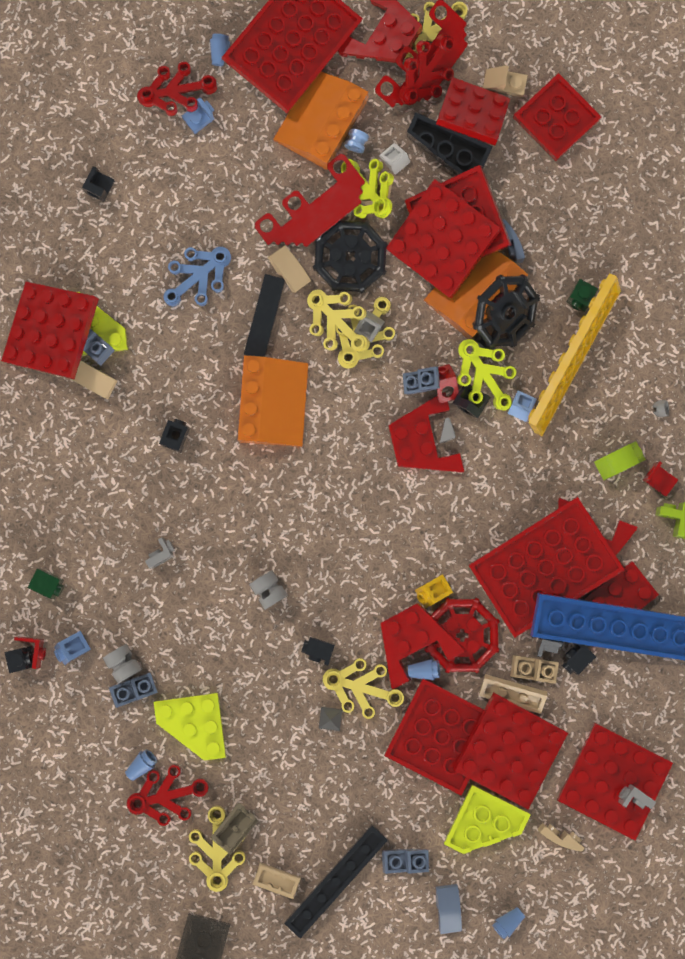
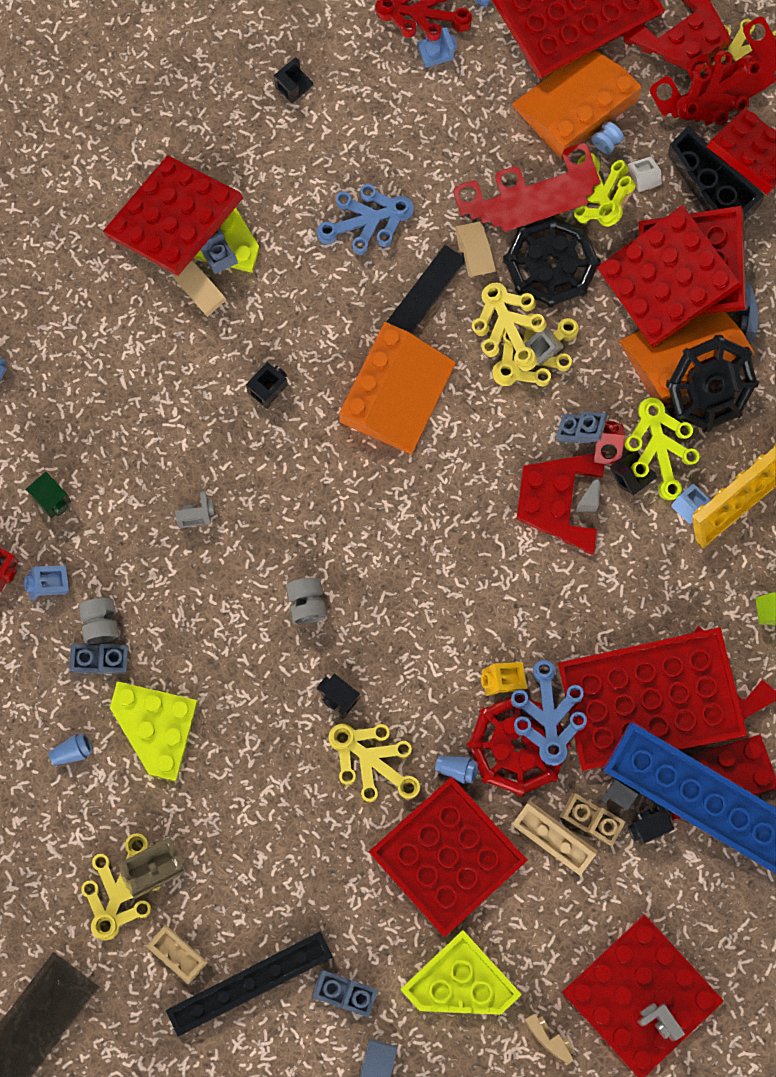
camera: 20 degrees right, 10 degrees down
(164, 796) = (83, 799): red plant -> none
(330, 718) = (320, 784): dark grey slope -> none
(409, 633) = (453, 717): red wing -> none
(477, 608) = (549, 717): none -> medium blue plant
(510, 751) = (526, 906): red plate -> none

